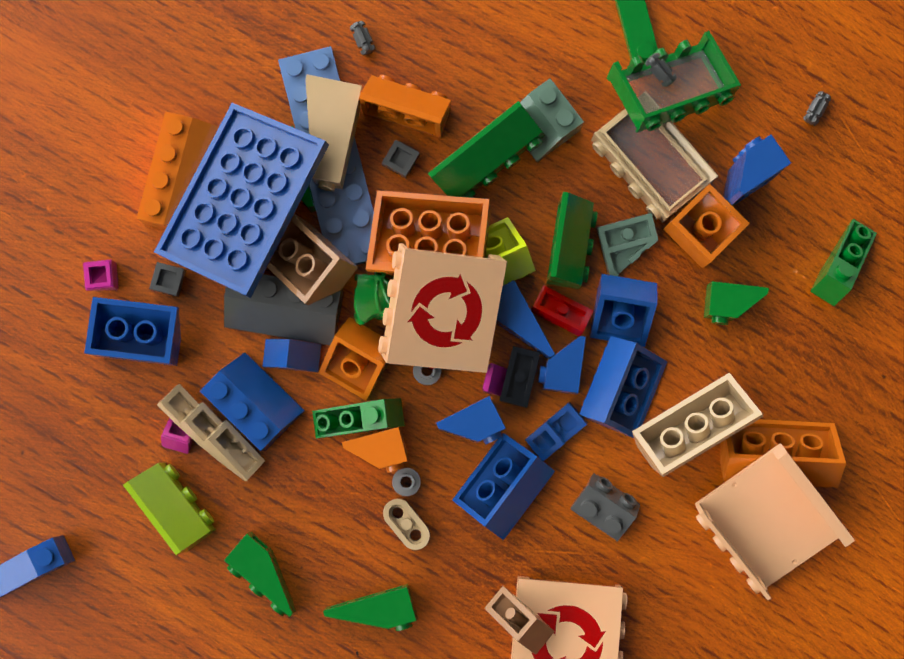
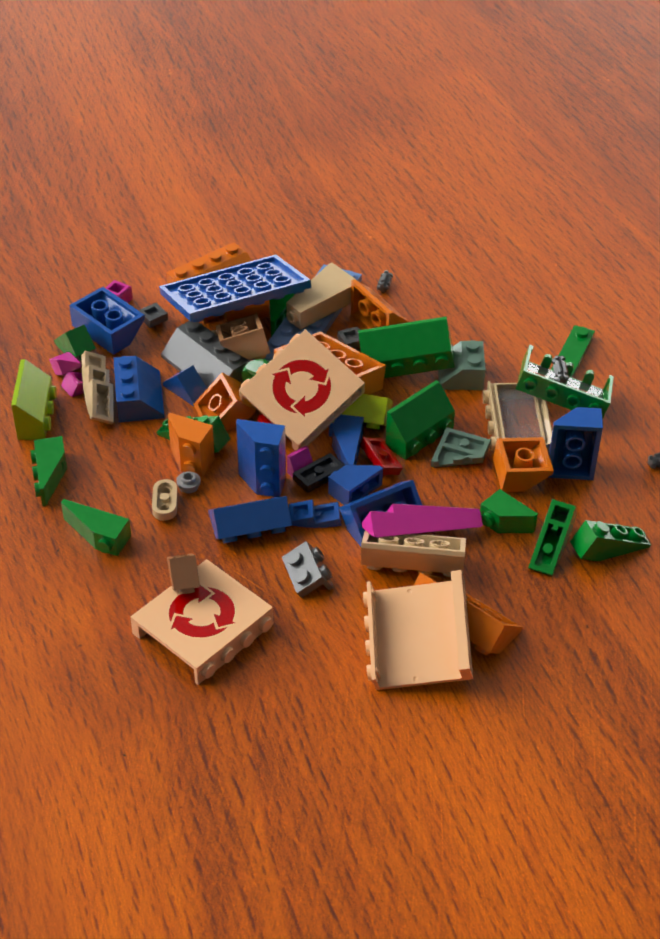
camera: 35 degrees right, 40 degrees down
(127, 386) = (75, 342): none -> green slope
(146, 423) = (64, 363): none -> dark pink slope
(624, 309) = (429, 473): blue slope -> none
(671, 384) = (414, 519): none -> dark pink wedge
(794, 298) = (553, 537): none -> green slope

